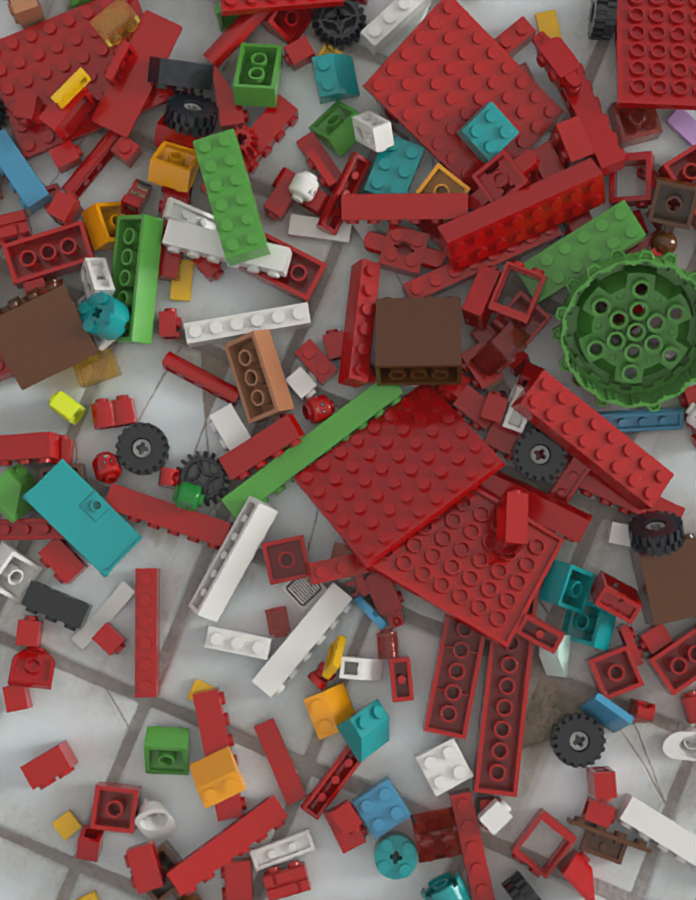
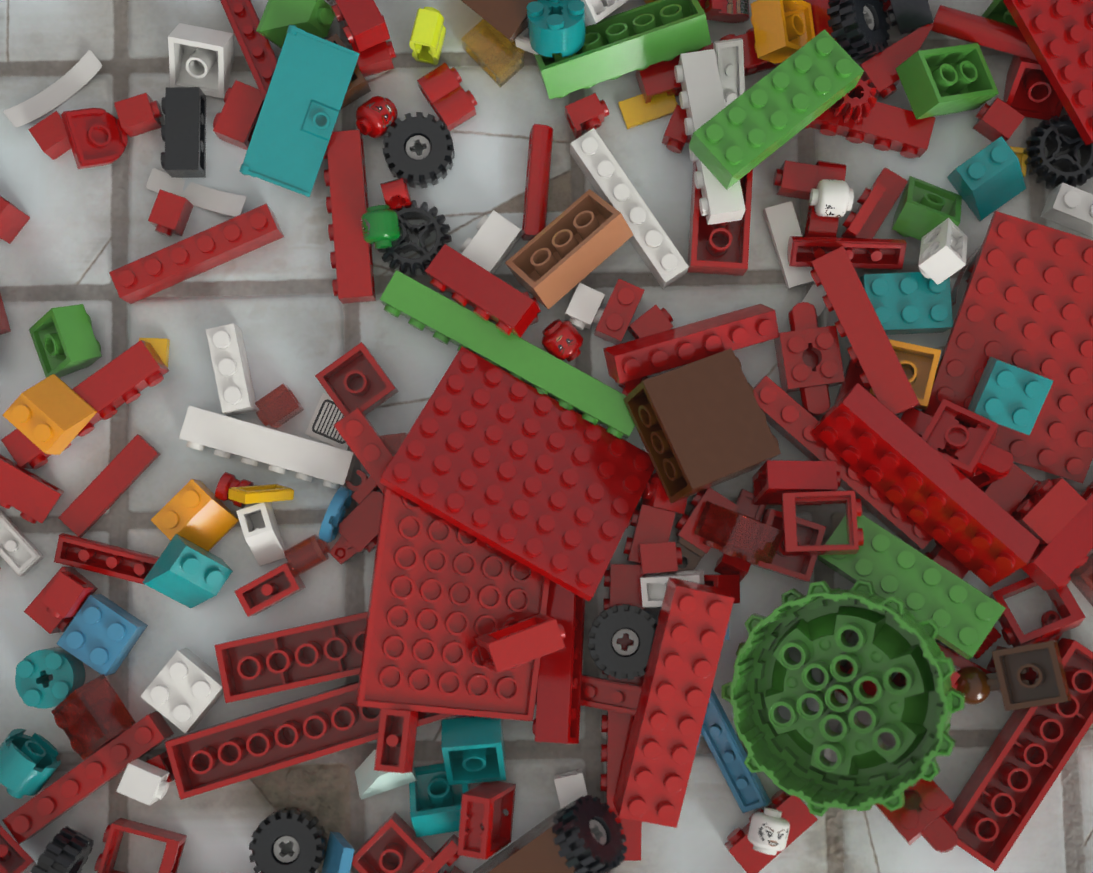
camera: 70 degrees right, 0 degrees up
(233, 559) = (329, 316): white brick -> none

